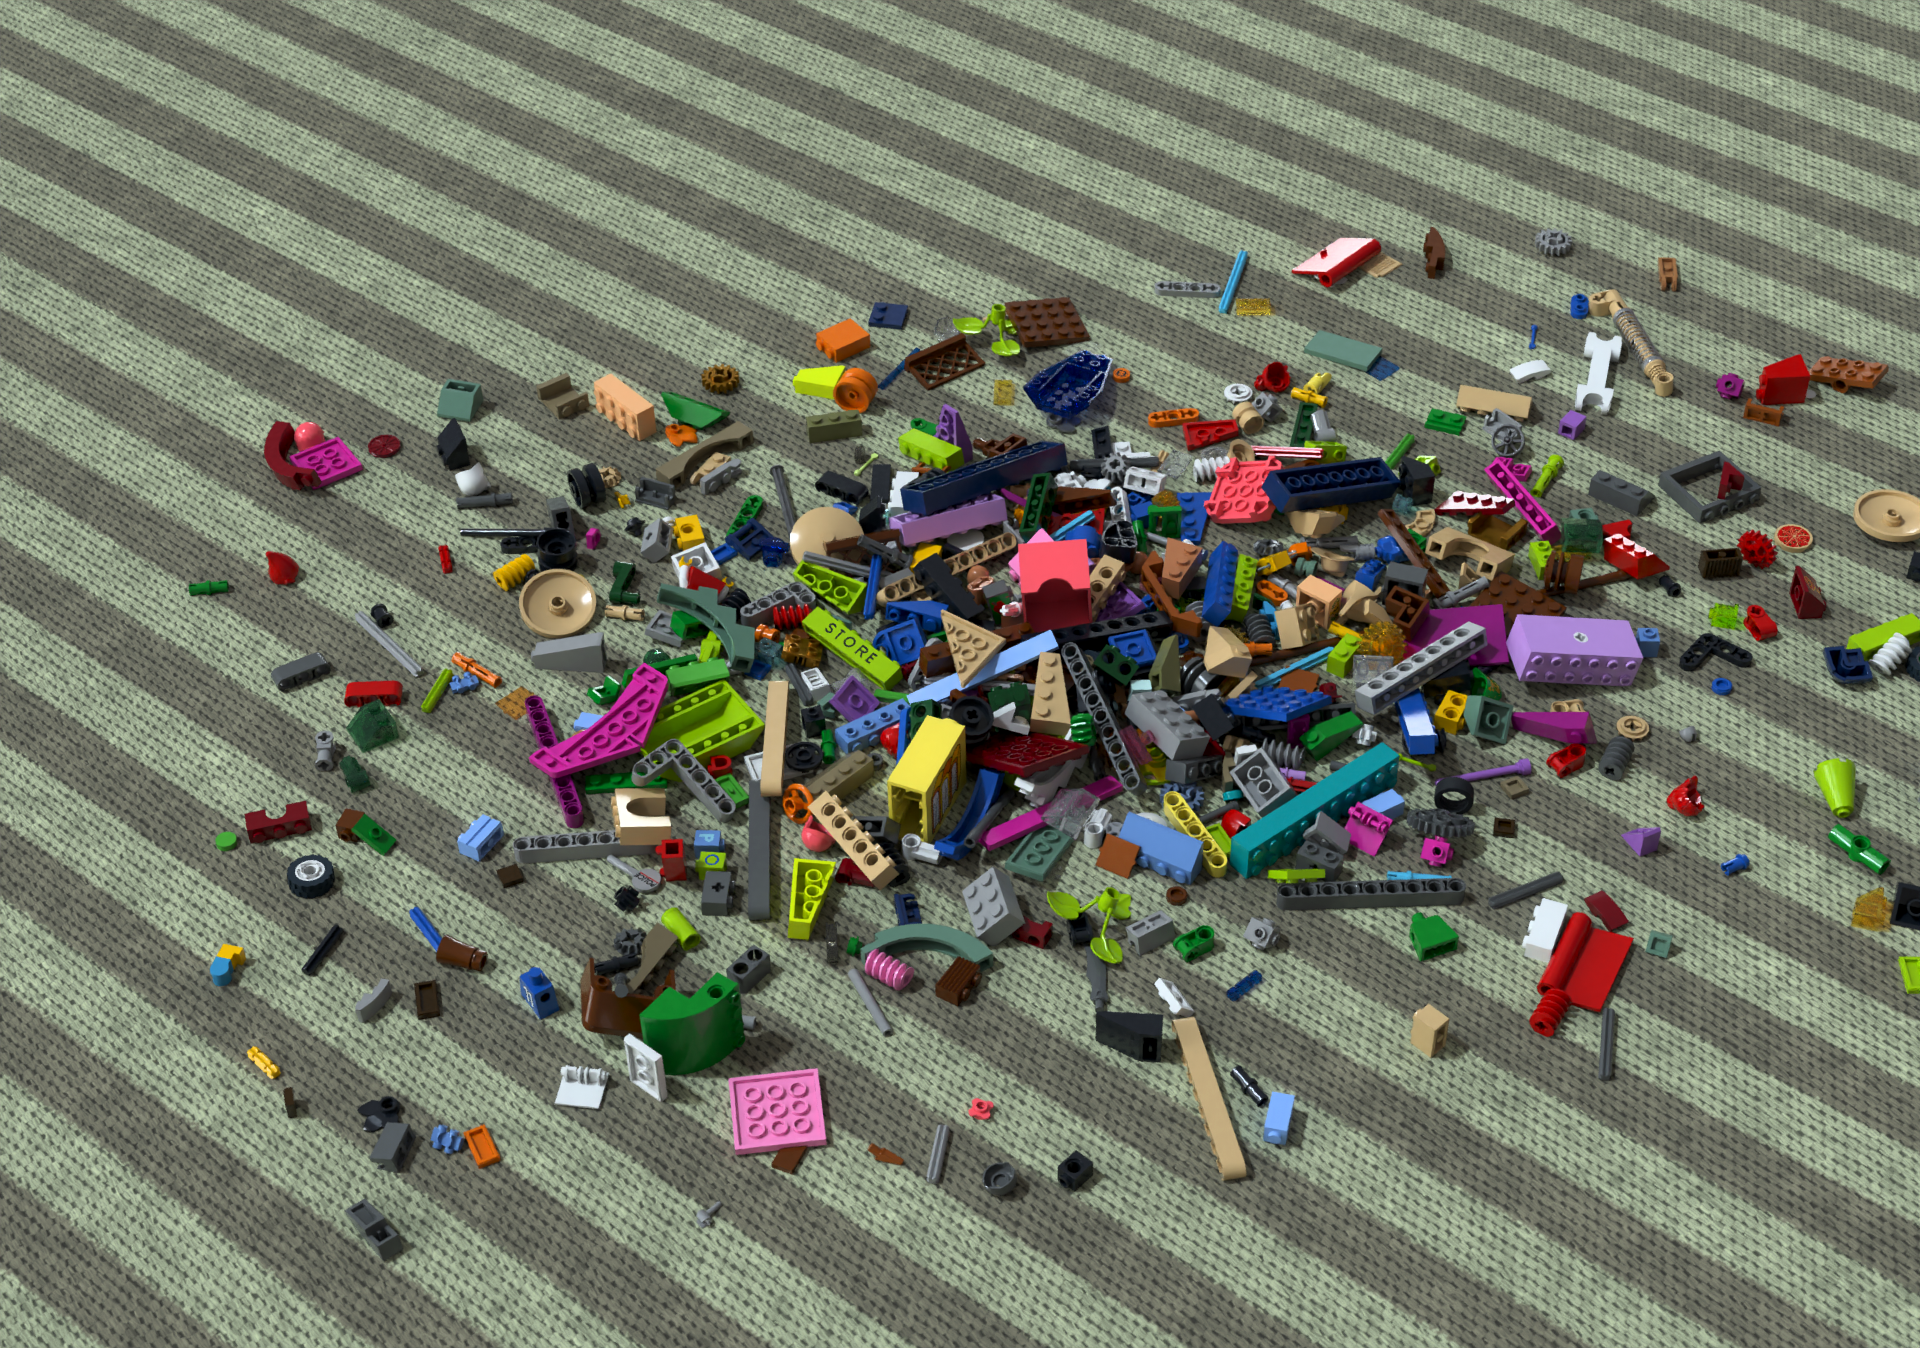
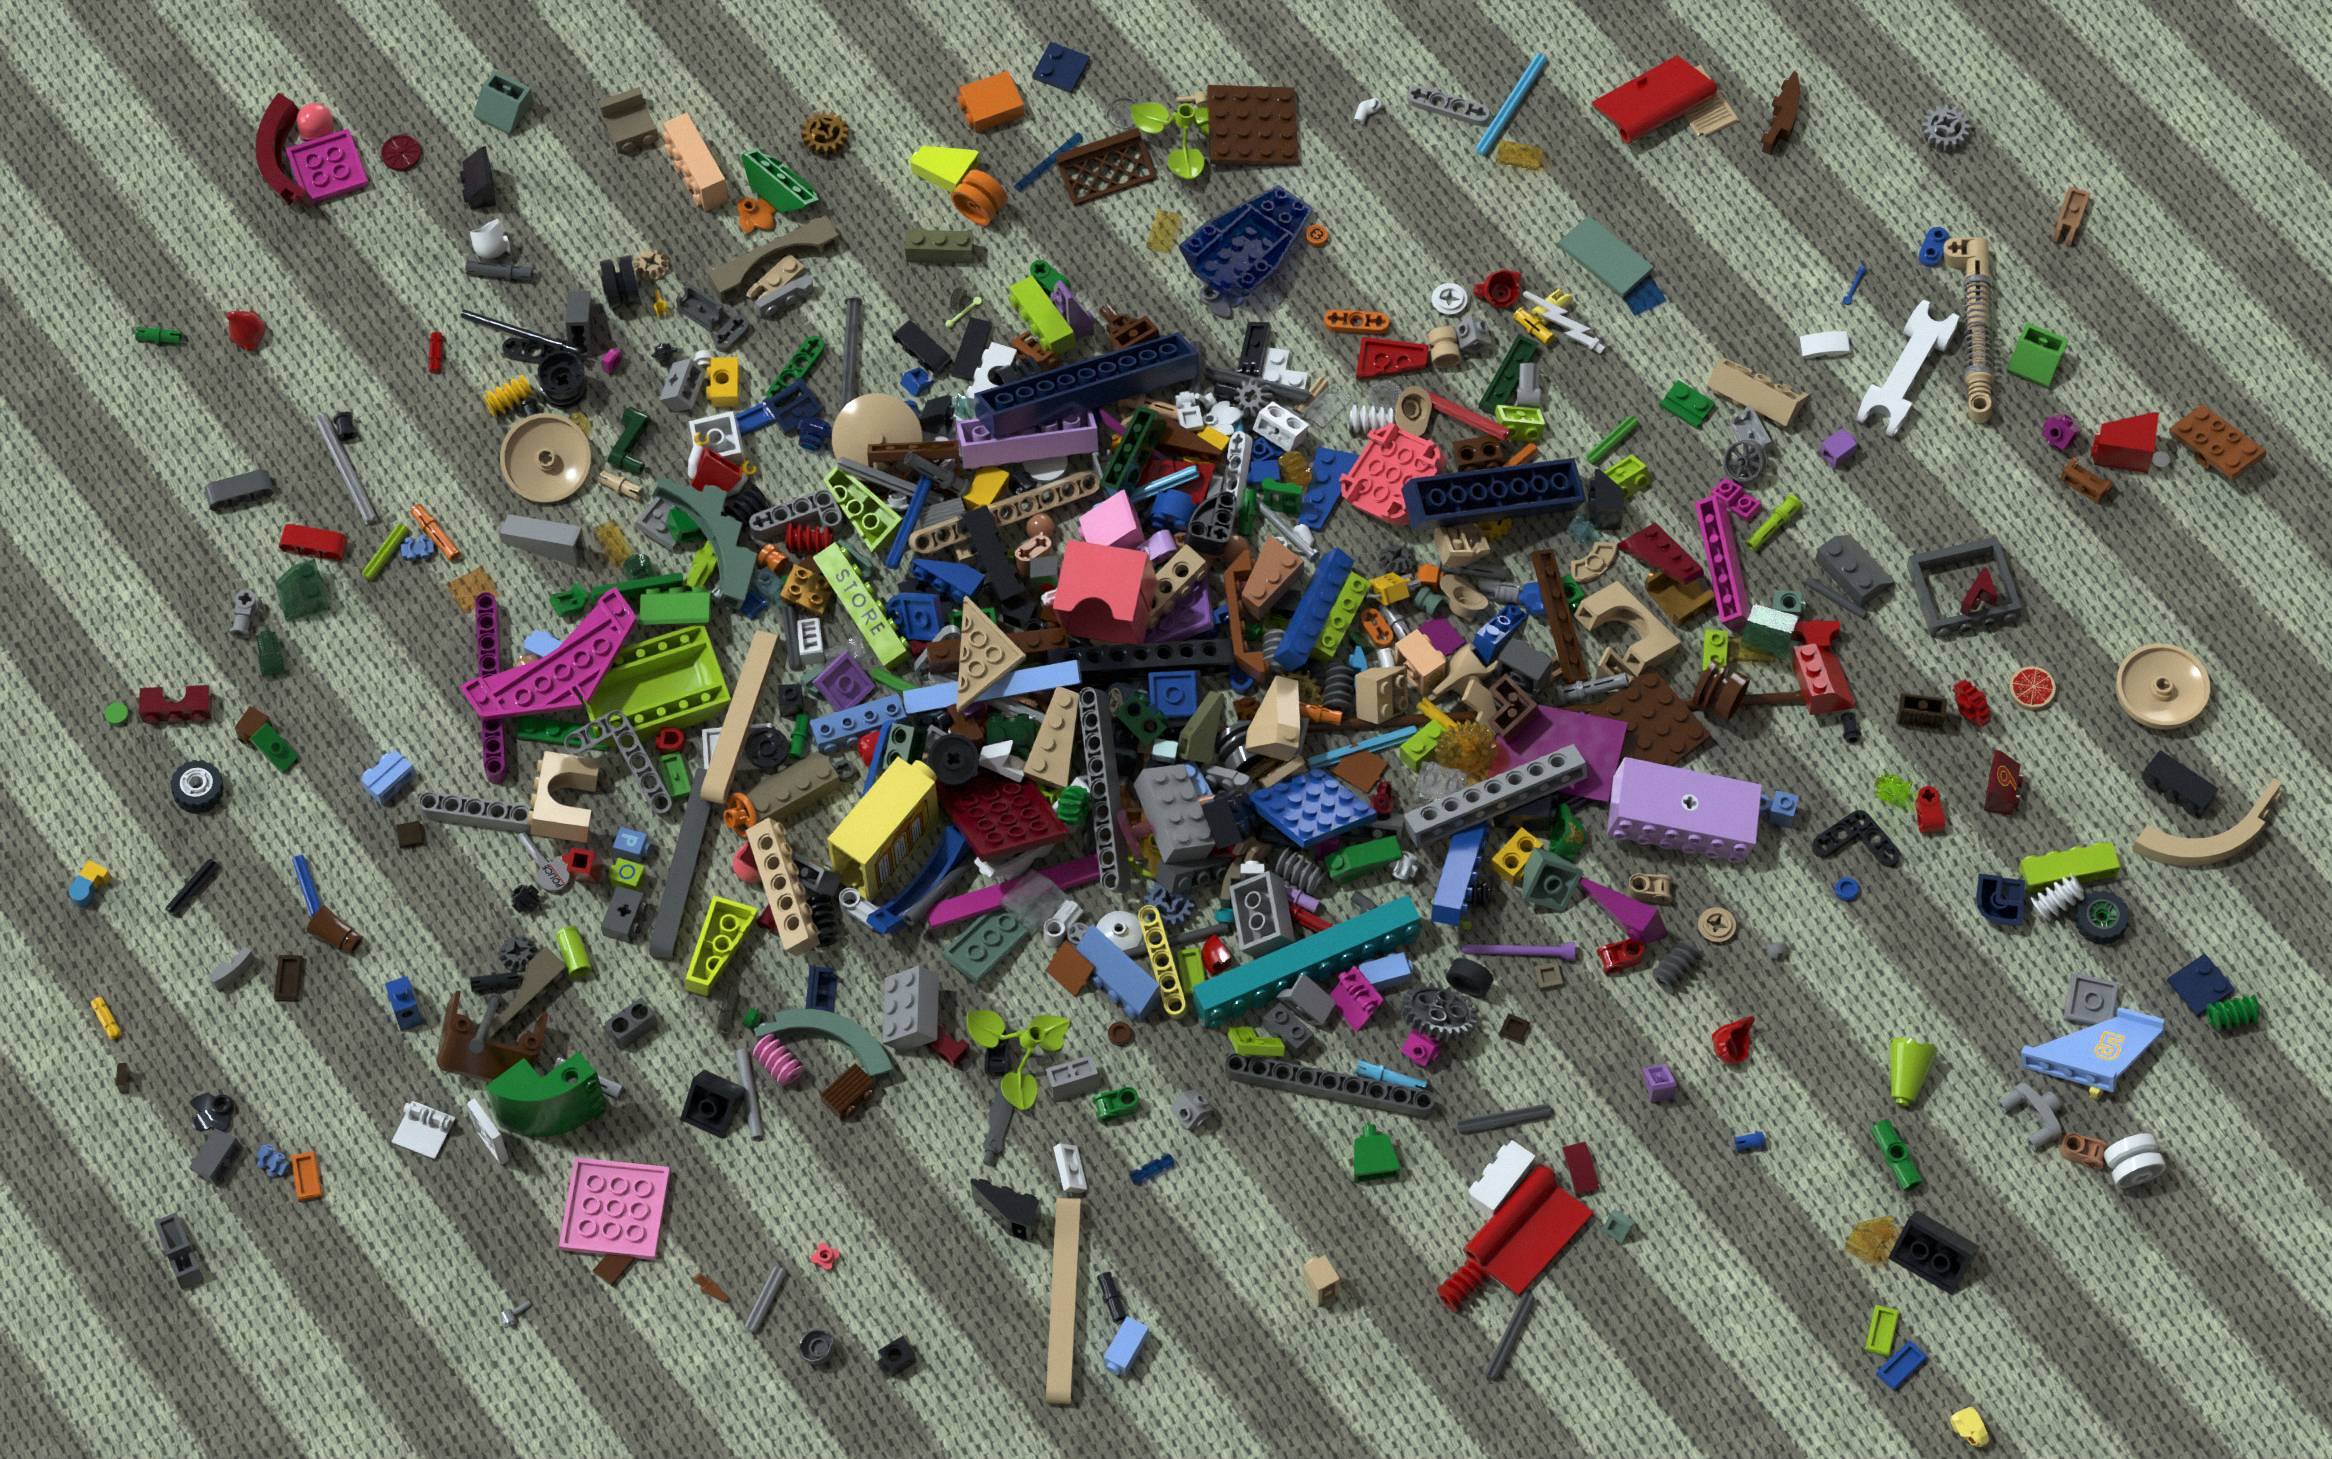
camera: 15 degrees right, 20 degrees up
(628, 650) = (612, 542): none -> clear yellow tile
(682, 505) = (727, 331): none -> dark grey beam
(840, 1014) = (712, 1103): none -> black slope
(1128, 300) = (1366, 108): none -> white arm
(1342, 393) = (1555, 315): none -> white piece
(1616, 512) = (1837, 598): none -> dark grey bar
(1689, 347) = (2037, 355): none -> bright green slope

